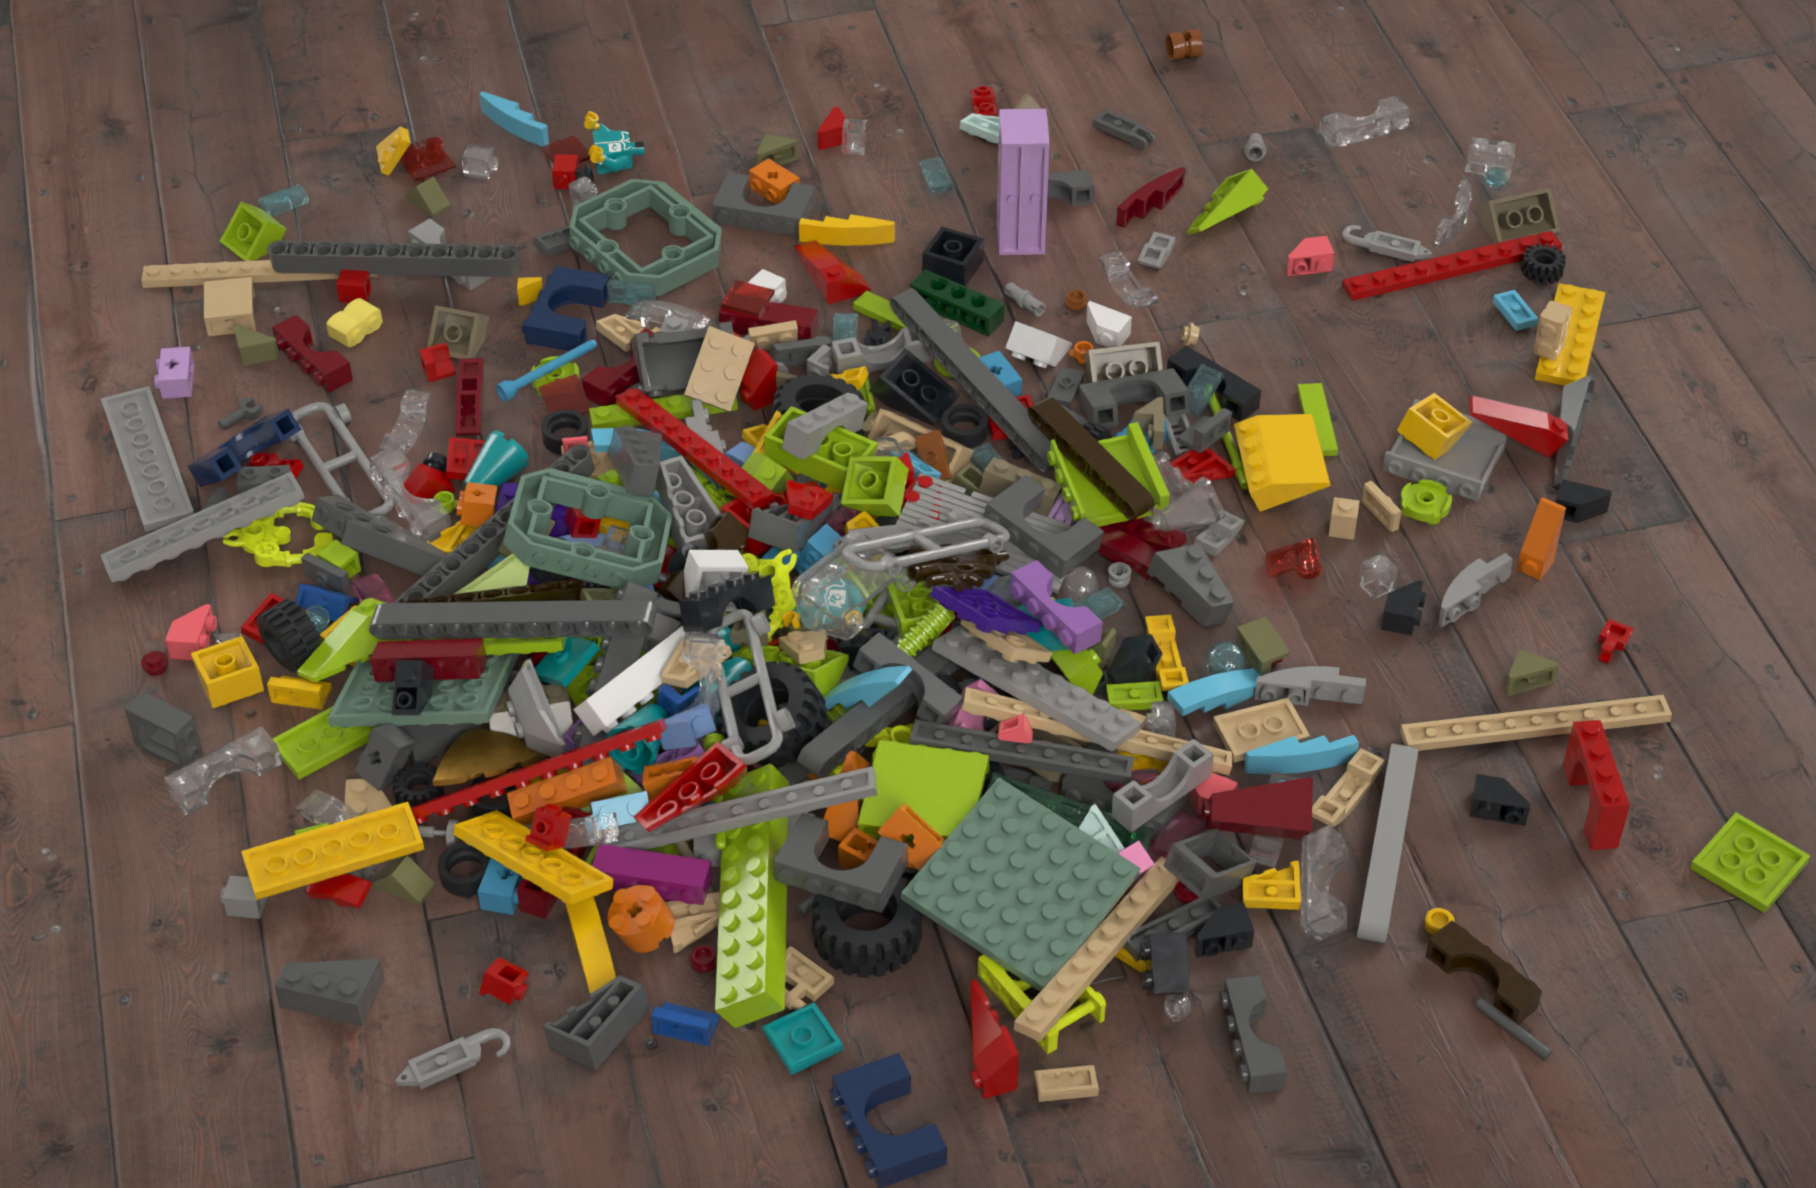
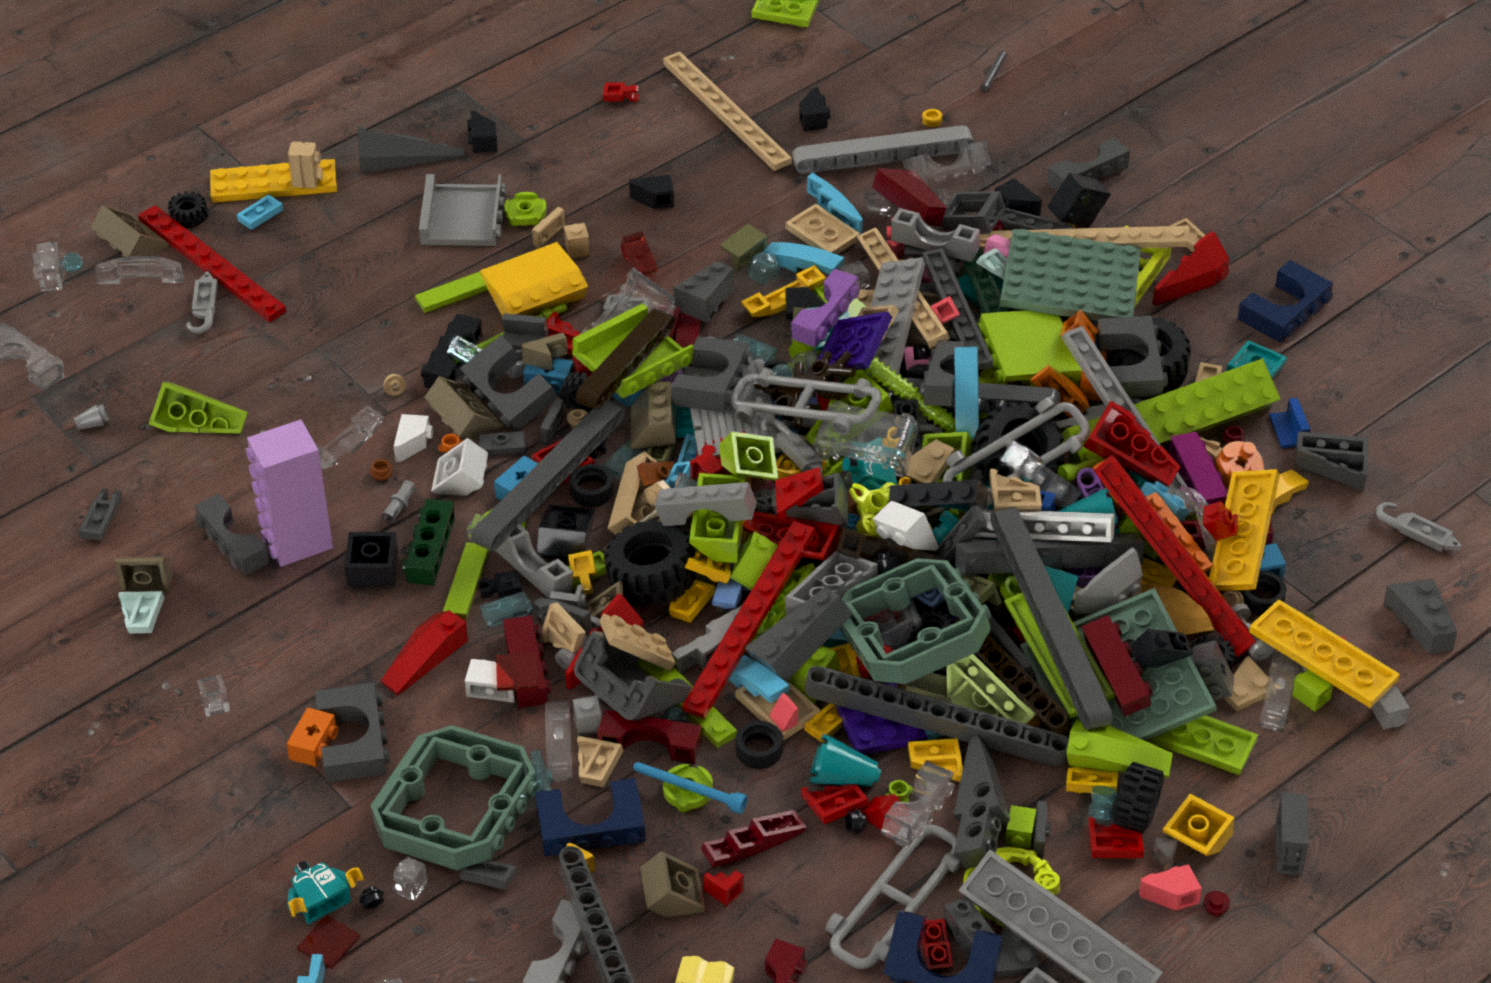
camera: 115 degrees left, 0 degrees up
(250, 753) = (1260, 778): clear arch -> none
(298, 692) = (1176, 787): yellow panel -> none
(333, 601) = (1067, 816): blue panel -> none
(372, 587) = (1039, 782): clear pink slope -> none
(410, 421) = (824, 868): clear slope -> none
(476, 504) = (898, 749): orange brick -> none
(505, 981) = (1340, 525): red brick -> none
(564, 170) = (374, 915): red brick -> none
(565, 395) = (716, 762): clear red piece -> none
(686, 727) = (1080, 479): medium blue slope -> none
(778, 149) = (262, 758): olive slope -> none
(831, 130) = (198, 724): red slope -> none
(850, 232) = (361, 652): yellow slope -> none
(935, 175) = (238, 624): clear light blue plate -> none
(984, 101) = (103, 630): red slope -> none
(1153, 194) = (209, 464): dark red slope -> none
(1273, 889) = (958, 183): yellow wing -> none
(1310, 682) = (765, 218): light grey slope -> none
(1311, 257) = (247, 340): coral slope -> none
(1349, 789) = (847, 180): tan slope -> none
(1378, 575) = (629, 209): clear brick -> none
(1433, 426) = (448, 210): yellow slope -> none
(1457, 950) = (970, 72): dark brown arch -> none
(1466, 588) = (610, 167): light grey slope -> none
(1528, 426) = (417, 163): red wedge -> none
(1530, 673) = (683, 122): olive slope -> none
(1542, 539) = (555, 129): orange slope -> none
(1591, 763) = (758, 58): red arch -> none

